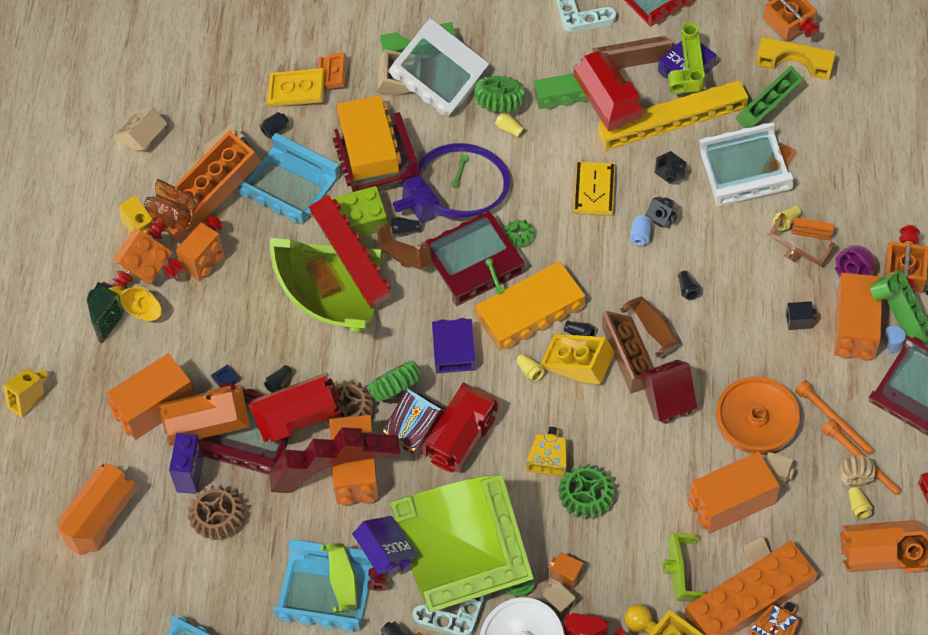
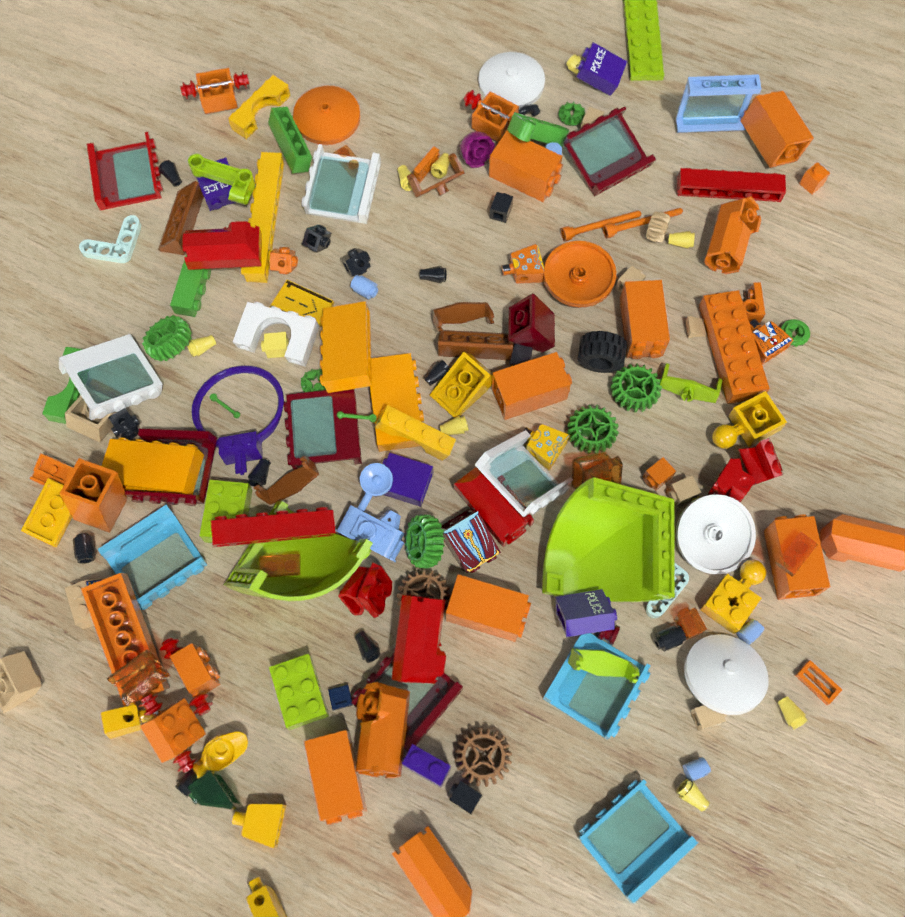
camera: 70 degrees left, 10 degrees up
(92, 361) = (261, 823): none -> yellow torso
(174, 511) = (464, 797): none -> black brick
(215, 340) = (299, 692): none -> lime brick
(317, 104) = (94, 495): none -> orange brick
(321, 454) = (486, 627): dark red arch -> none
(328, 354) = (367, 590): none -> red piece
(387, 332) = (356, 525): none -> light blue piece
(400, 100) = (124, 424): none -> black brick
(497, 433) = (520, 475): none -> panel
(500, 331) = (400, 424): none -> yellow arch
(536, 508) = (598, 466): none -> clear orange piece
(539, 183) = (275, 344): none -> light yellow brick
(562, 197) = (258, 317): none -> white arch
(562, 238) = (346, 347): none -> light orange brick
(602, 414) = (531, 385): none -> orange brick
(631, 150) = (283, 260): none -> orange brick
(631, 398) = (520, 354): none -> black brick
(642, 505) = (638, 378): none -> bright green gear
(671, 464) = (602, 351): none -> black tyre
(678, 19) = (170, 172): none -> black cone
(742, 361) = (525, 265): none -> orange torso
(816, 603) = (755, 303): none -> orange plate
(817, 242) = (440, 167): none -> light yellow cone
(823, 119) = (327, 115): none -> orange dish

